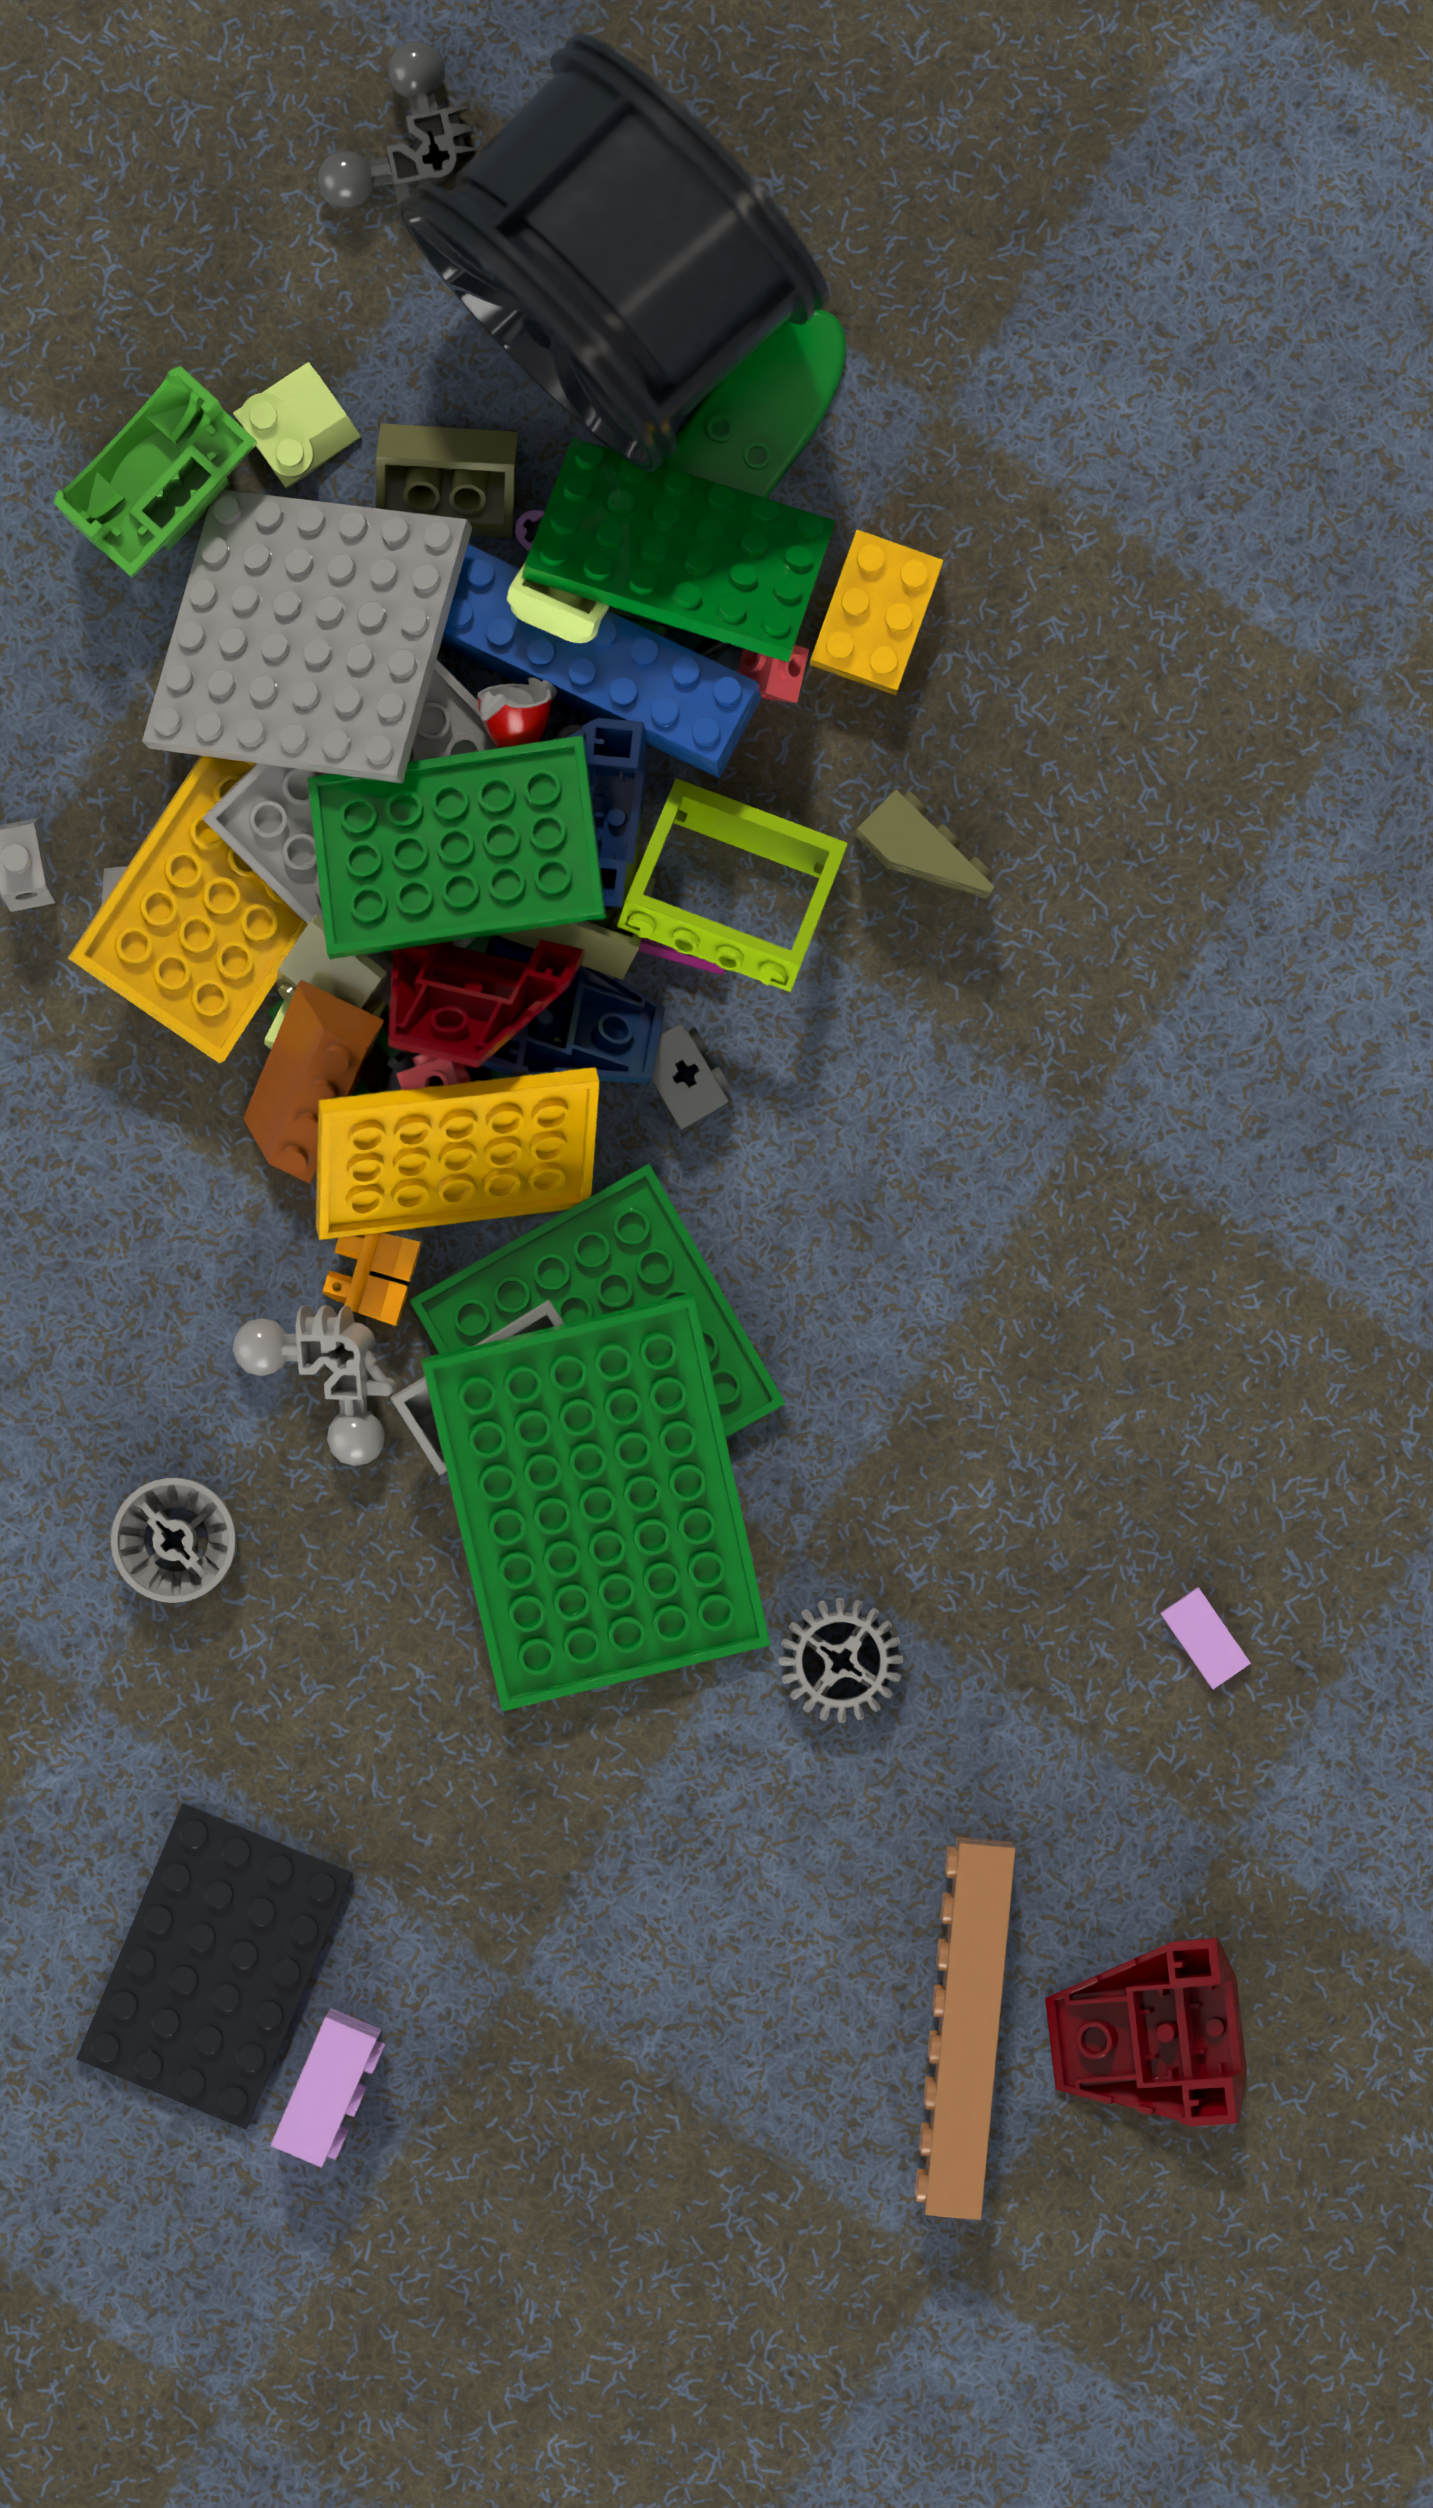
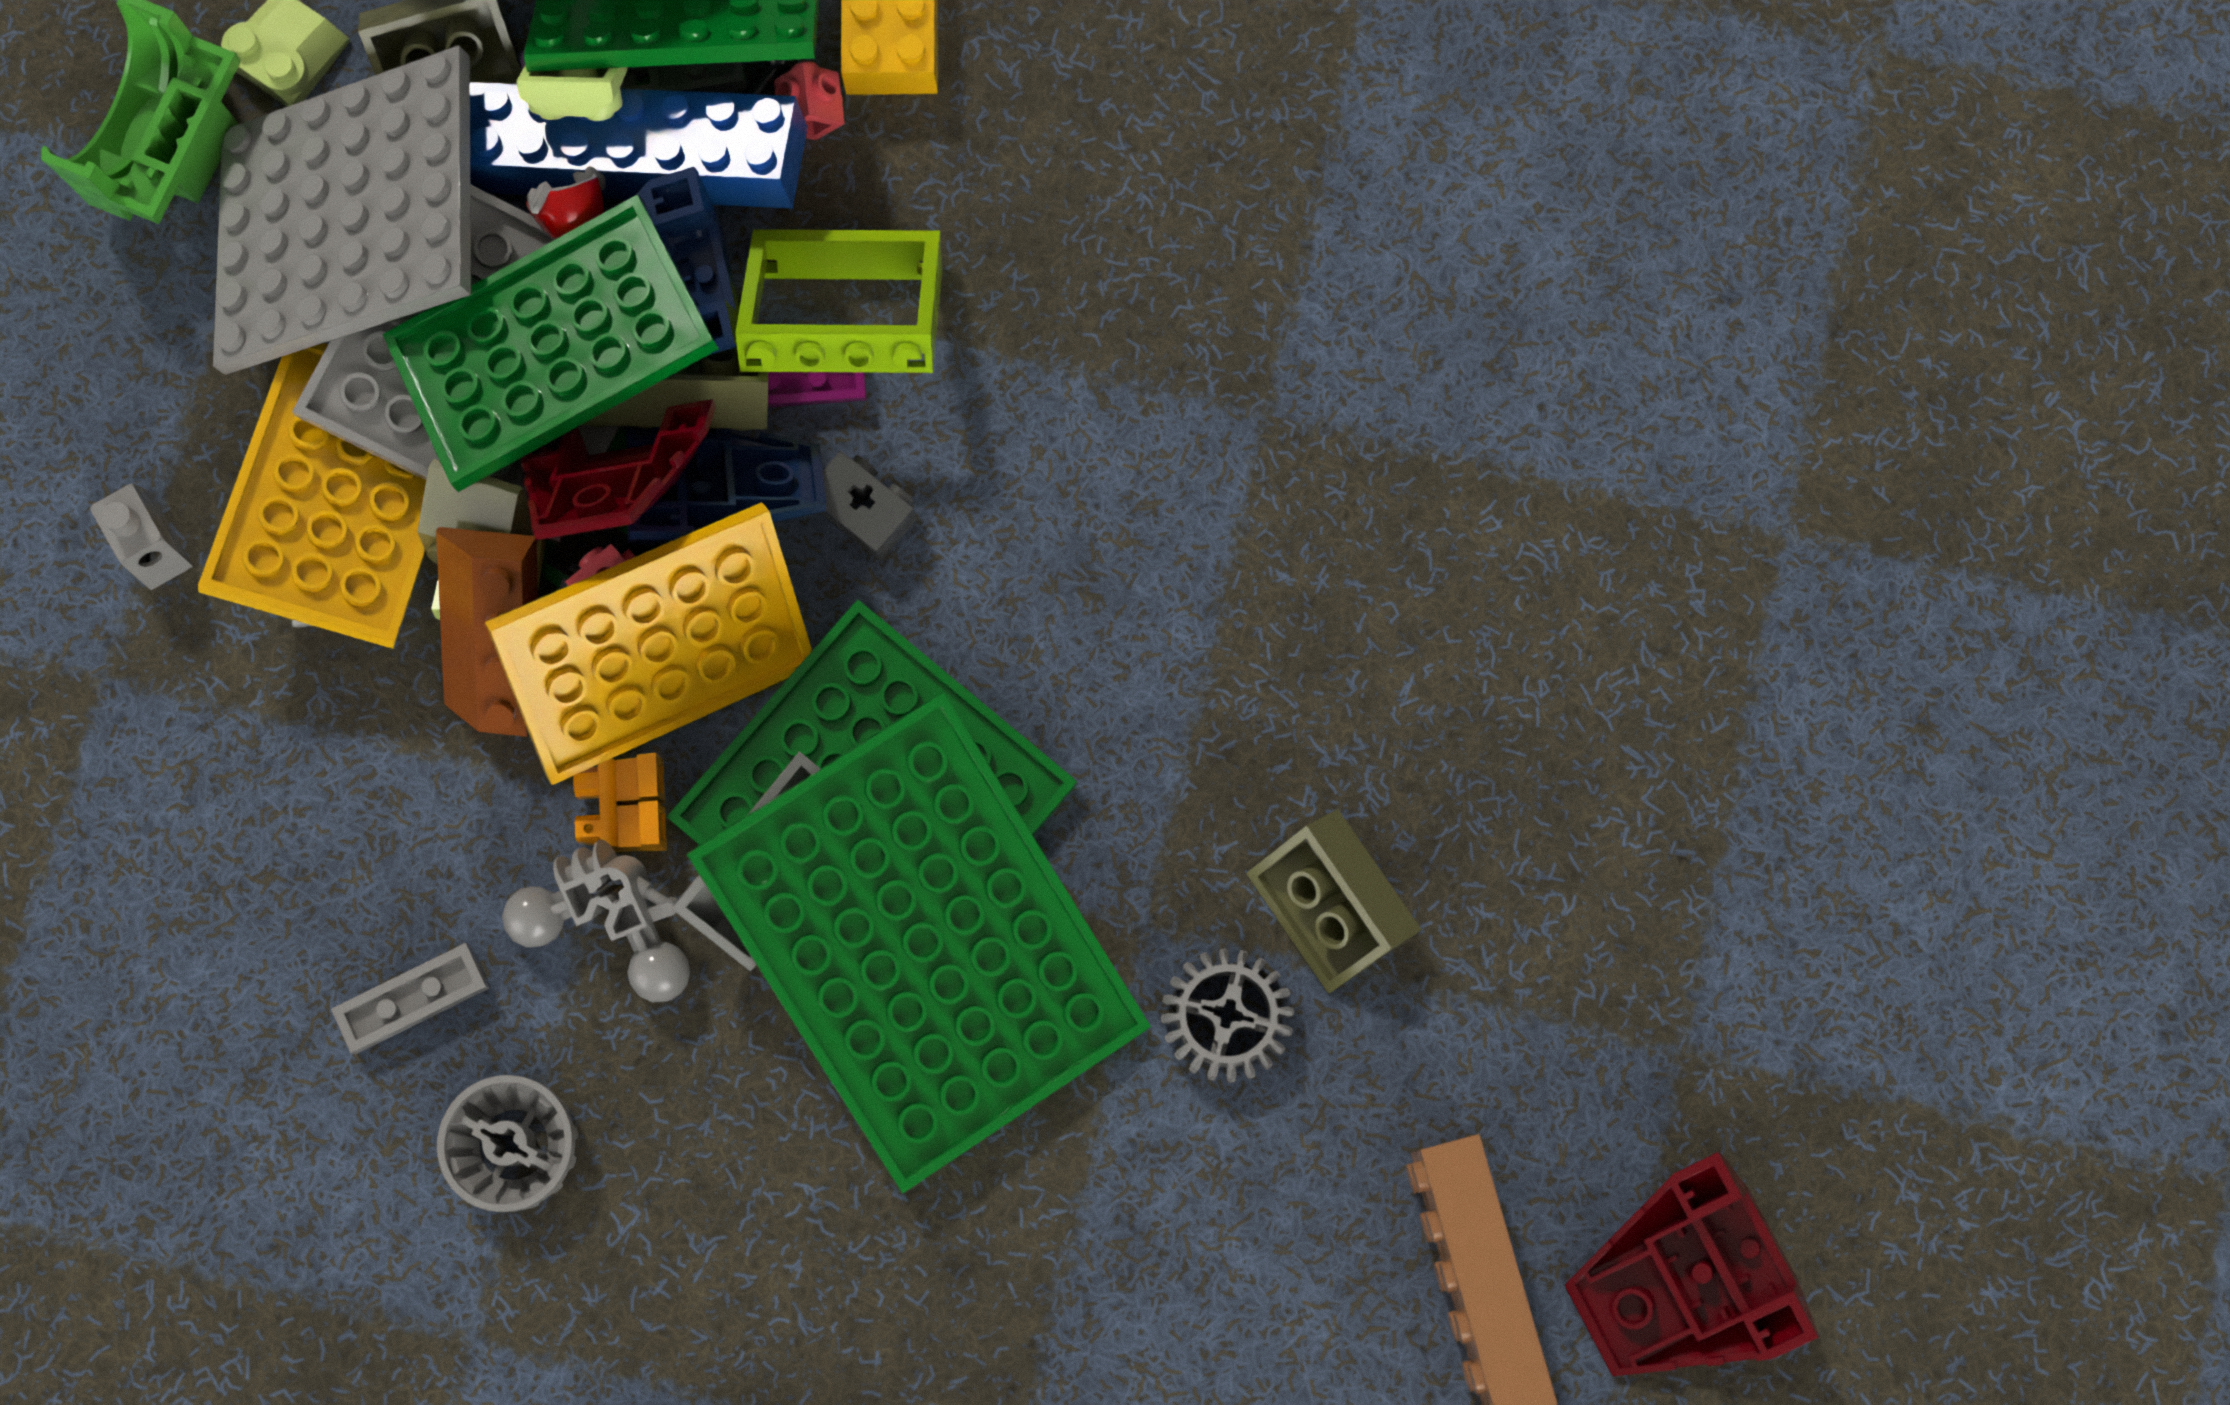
camera: 20 degrees left, 10 degrees down
(128, 1378) = (410, 998): none -> light grey plate
(913, 846) = (1012, 208): olive slope -> none
(973, 1594) = (1333, 900): none -> olive slope
(1205, 1638) = (1579, 861): lavender tile -> none

